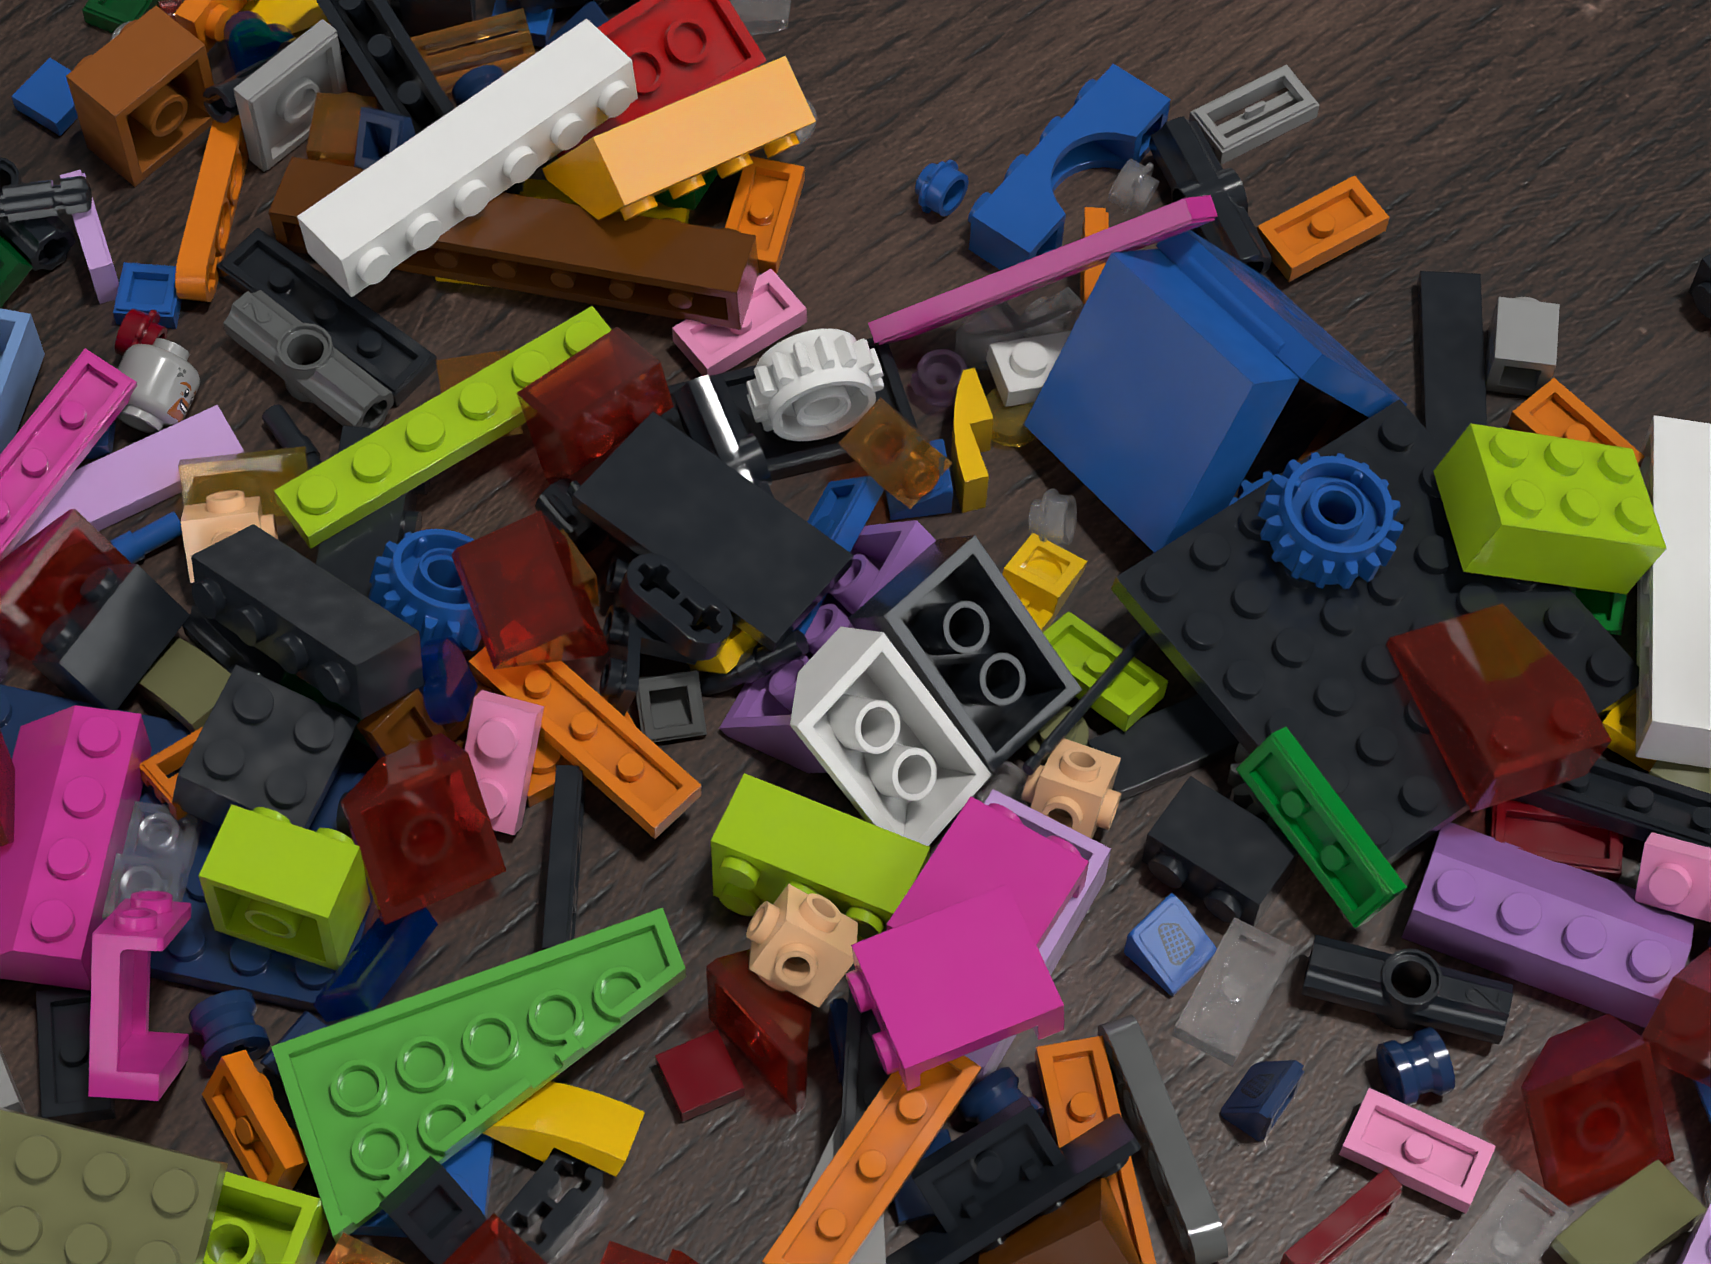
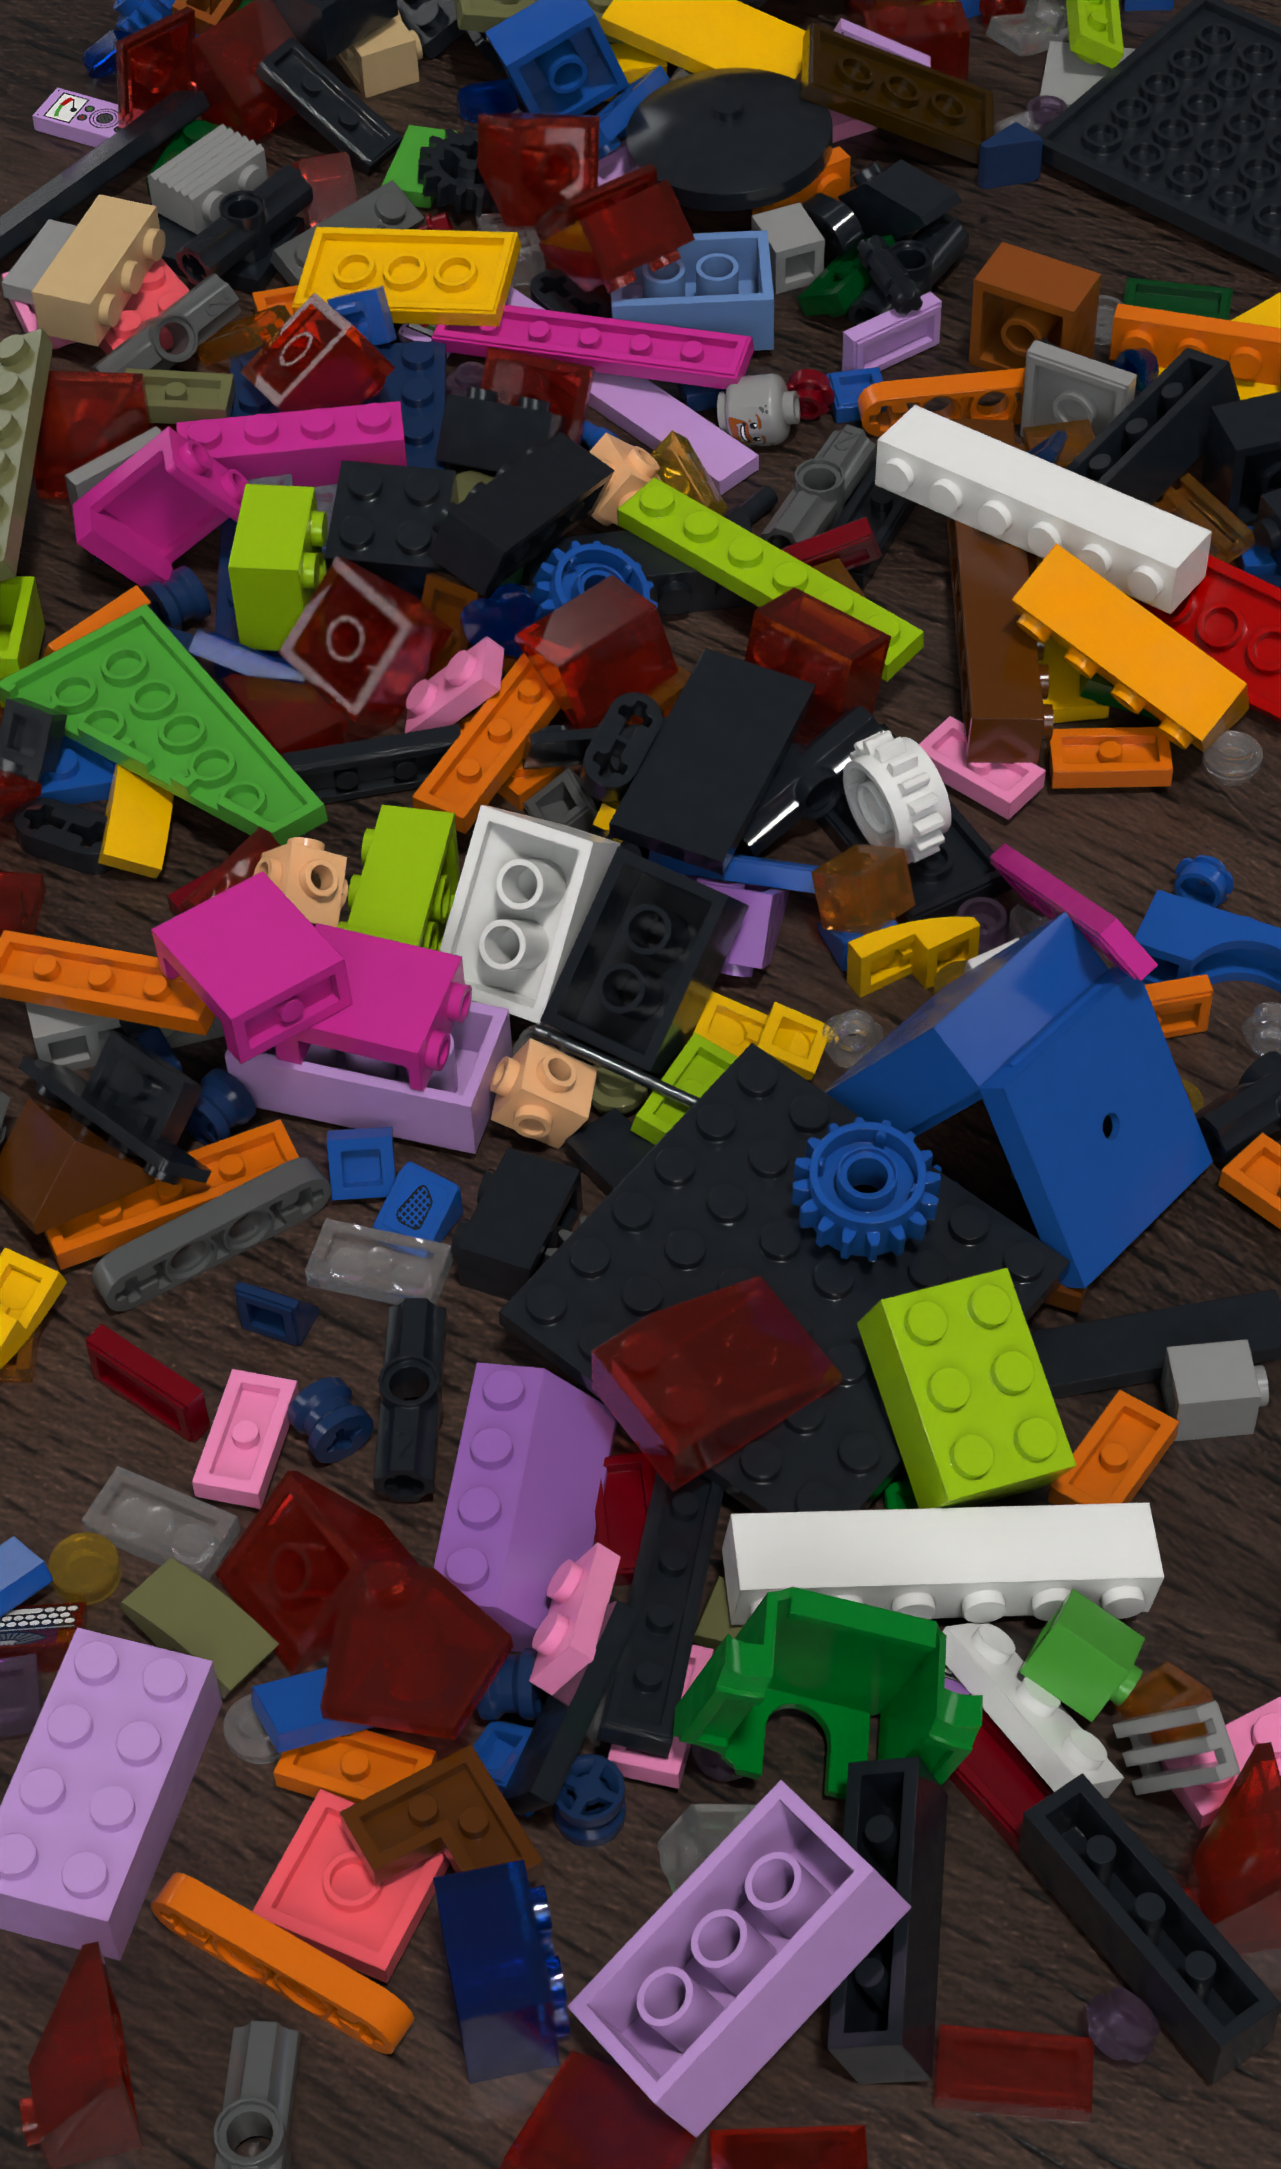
camera: 80 degrees right, 10 degrees down
(419, 361) = (851, 543): none -> dark red tile
(470, 936) = (287, 712): none -> clear red slope
(1107, 979) = (361, 1162): none -> blue tile
(1320, 827) = (535, 1262): green tile -> none

